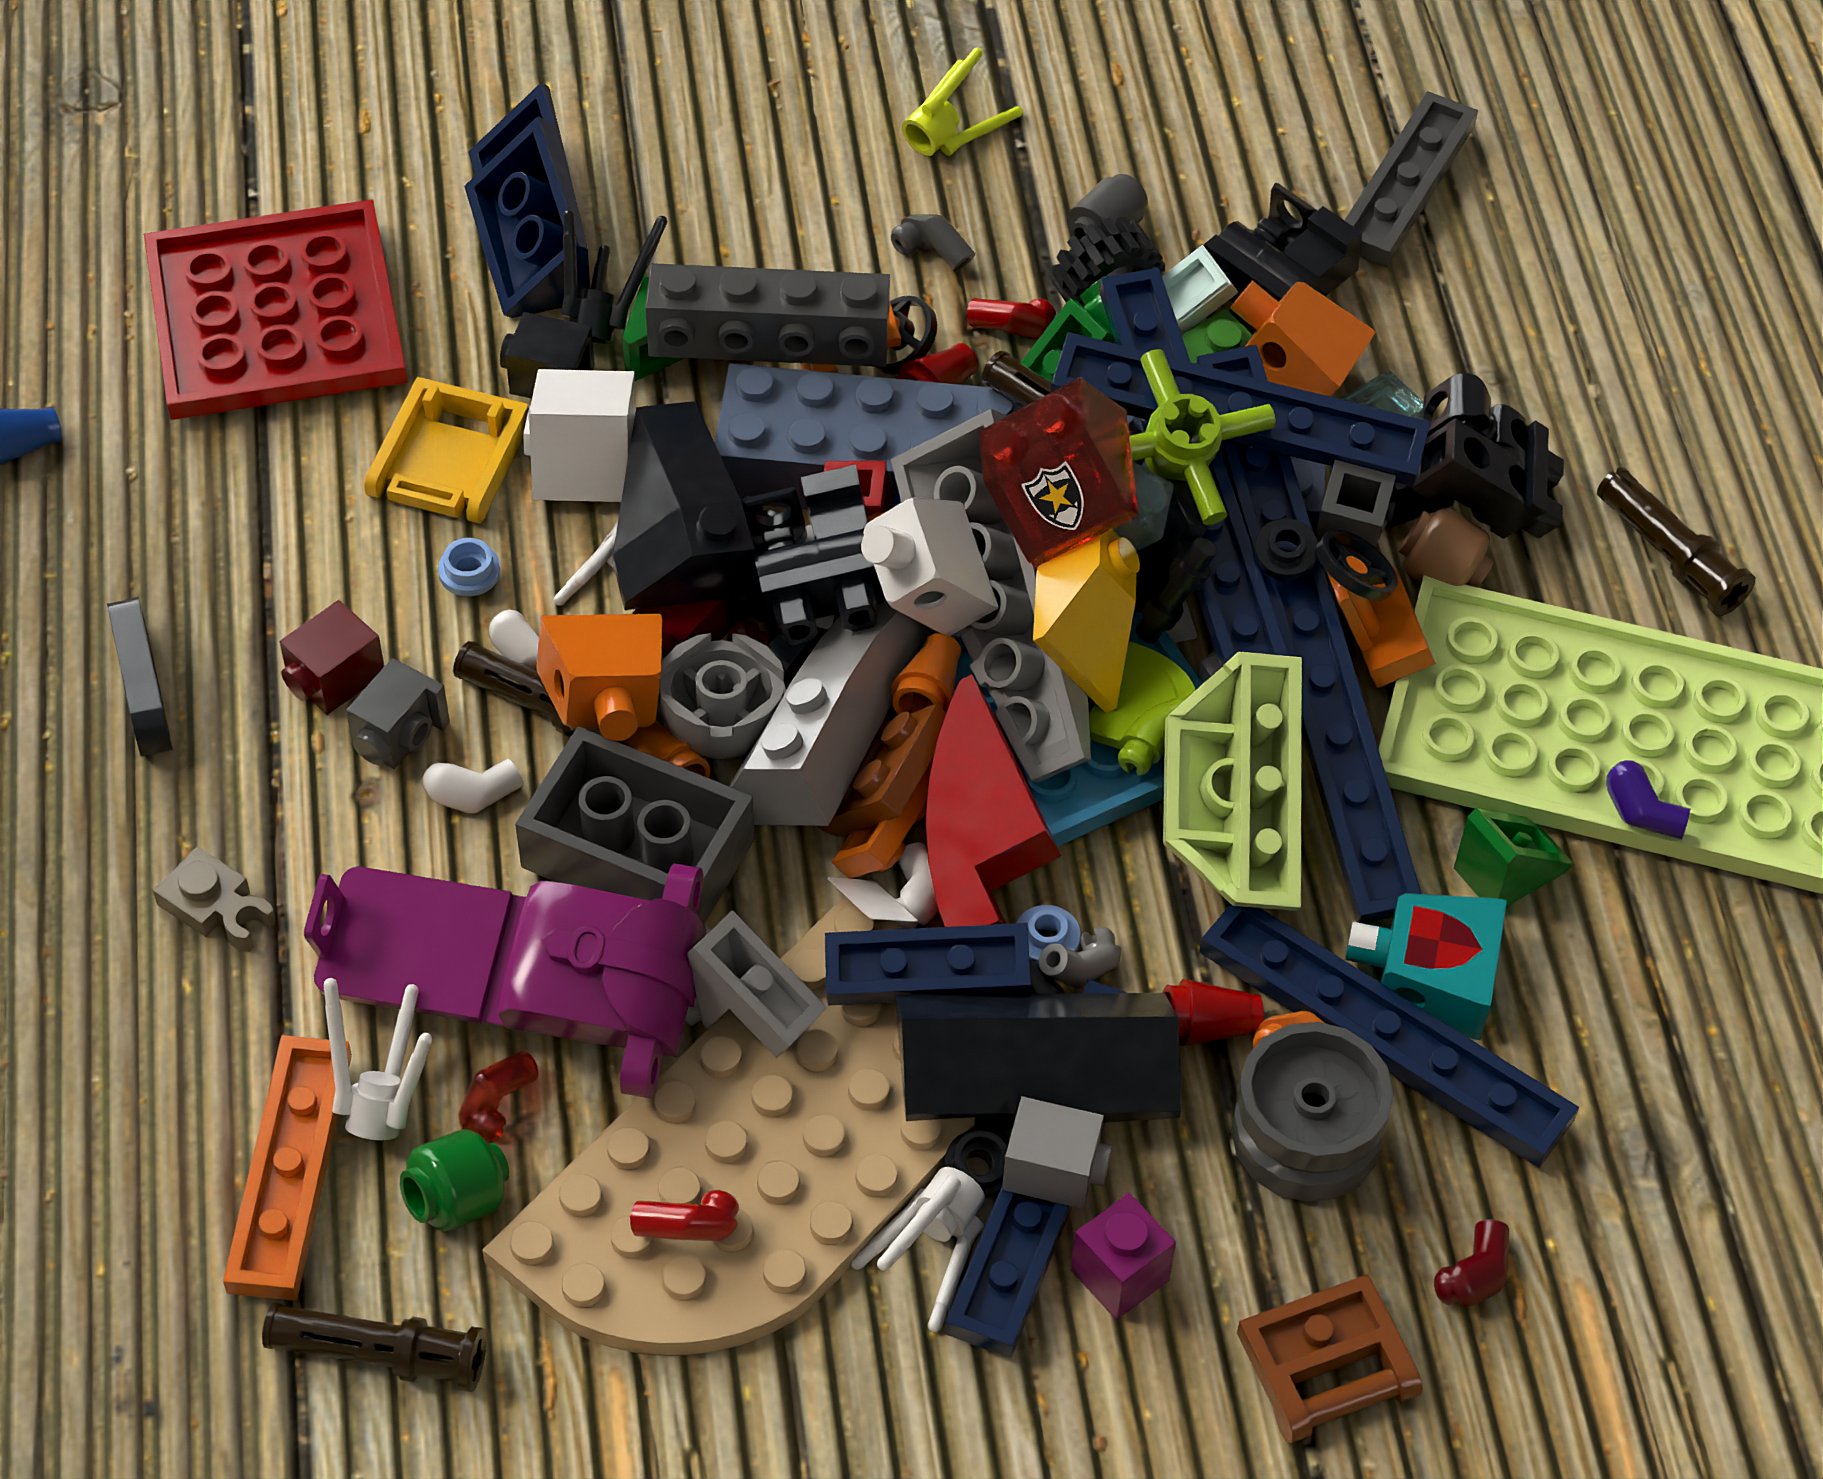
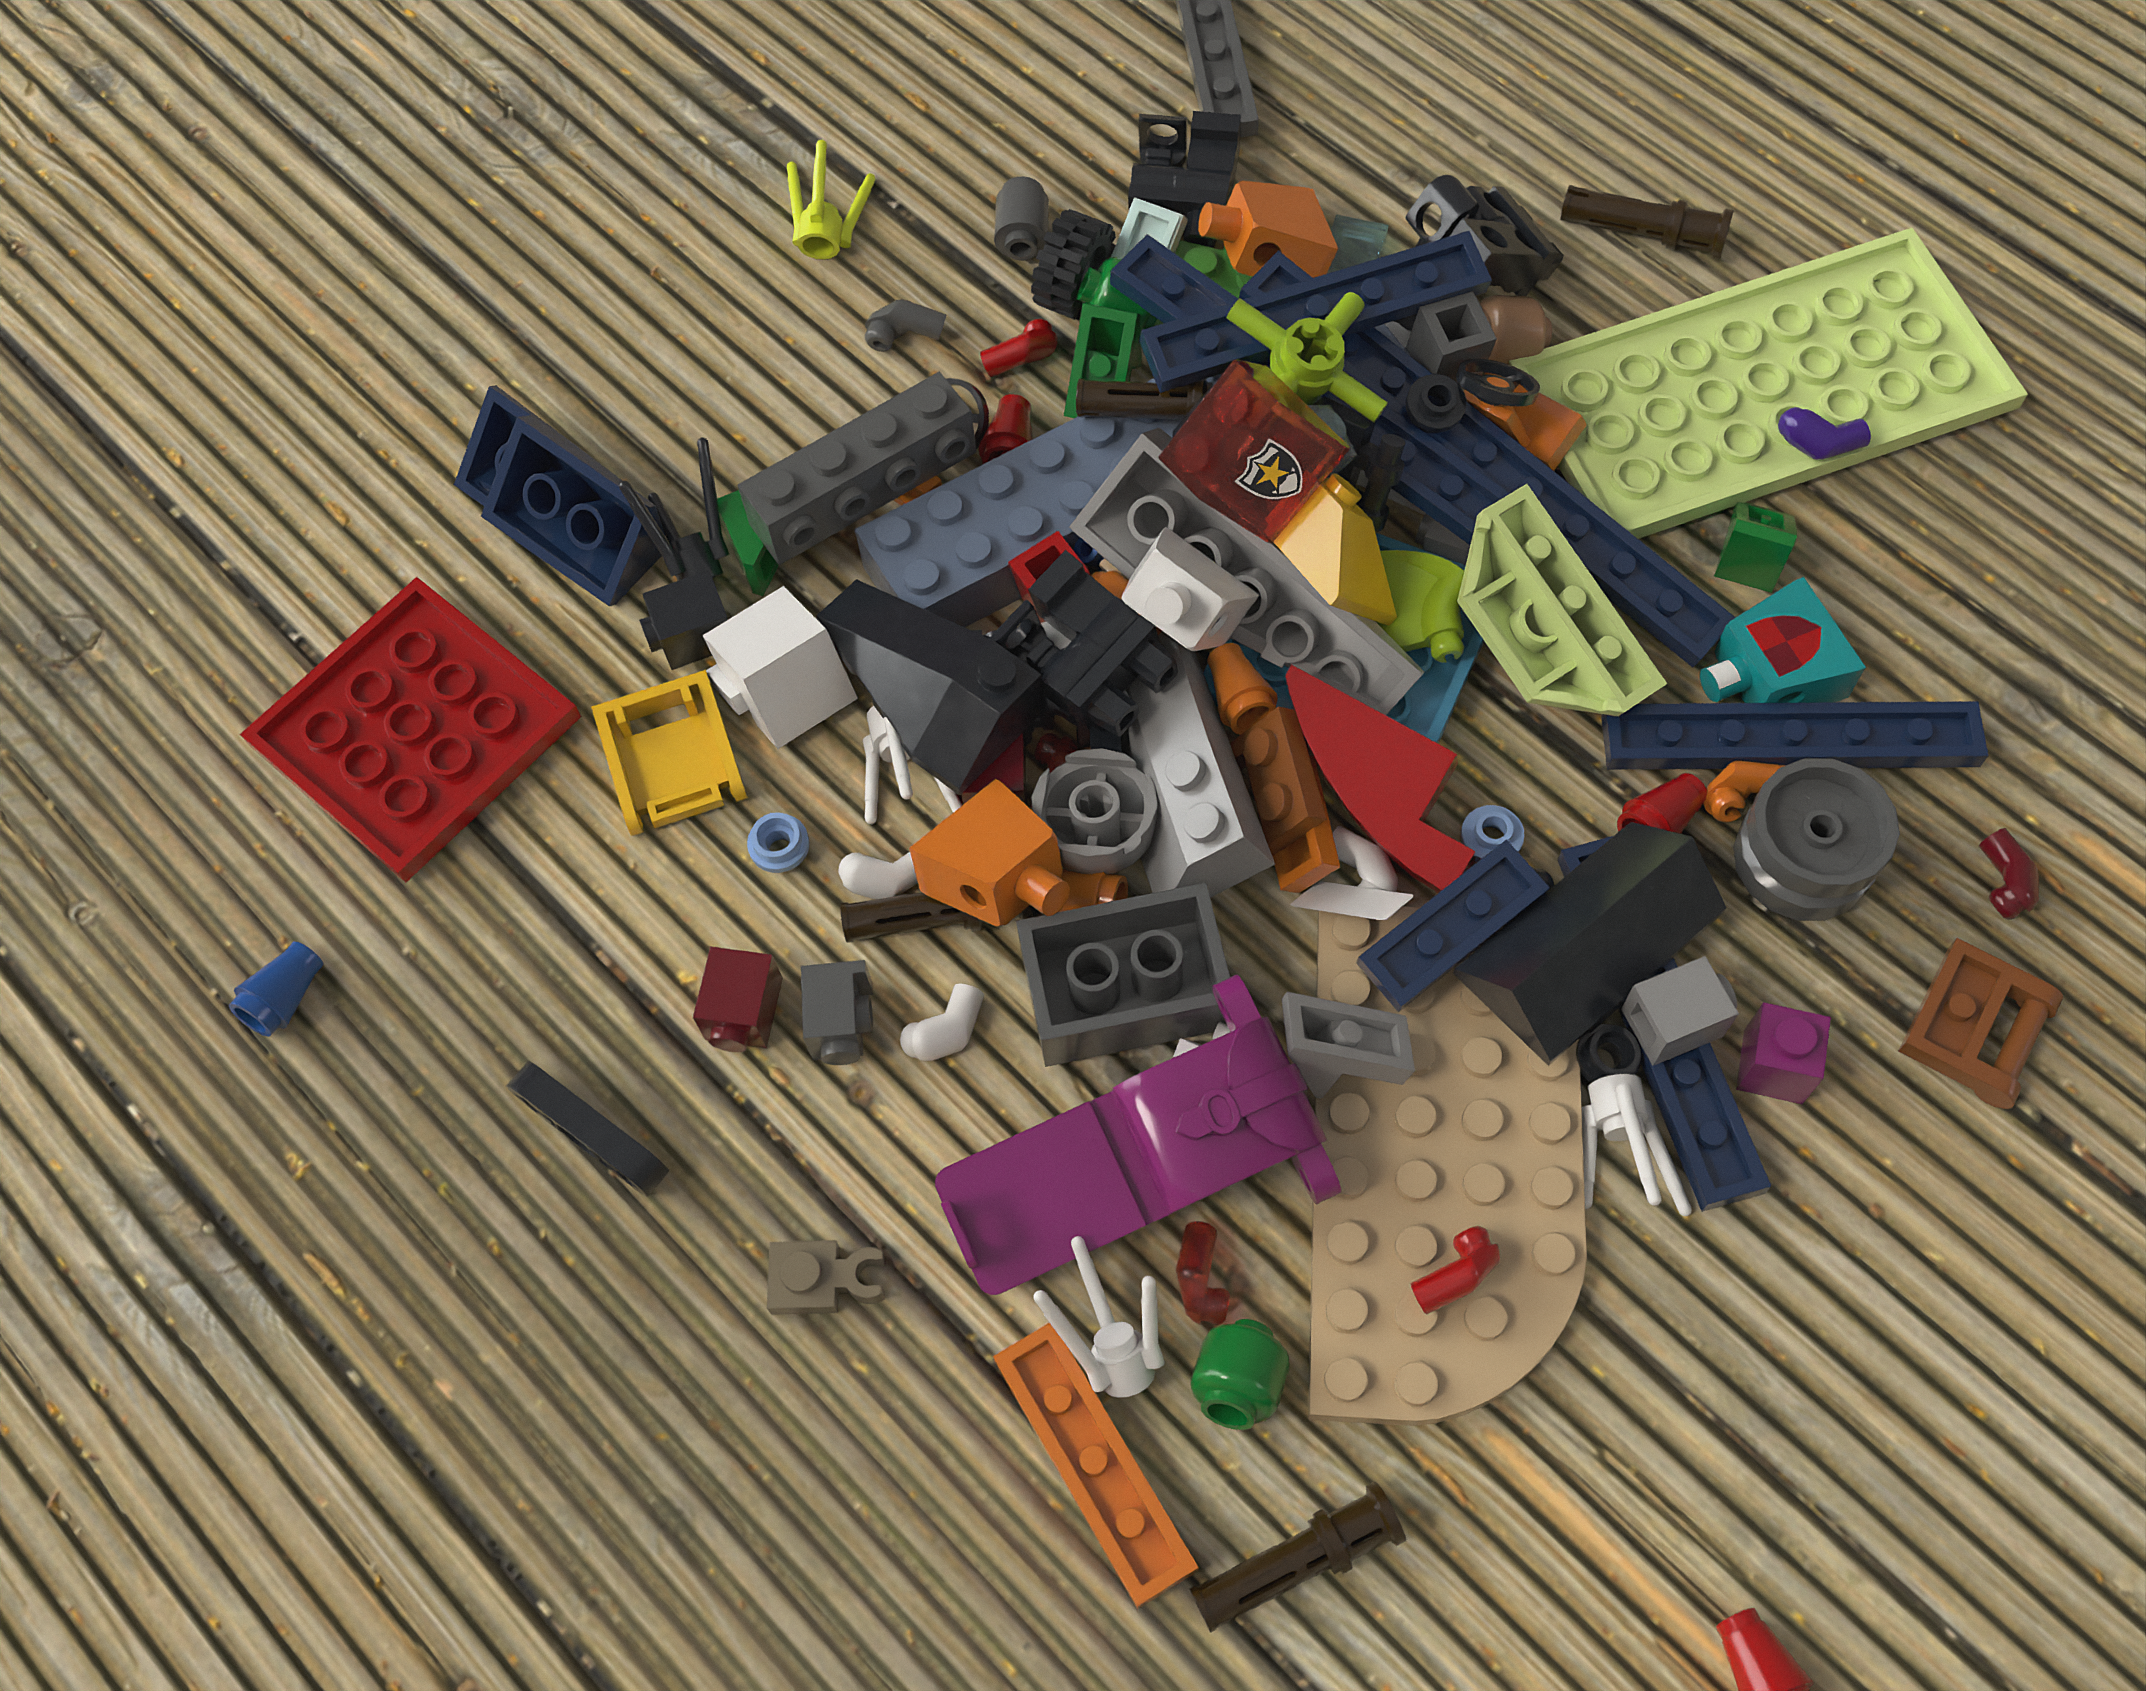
camera: 30 degrees left, 10 degrees up
(1096, 959) = (1543, 828): light grey arm -> none

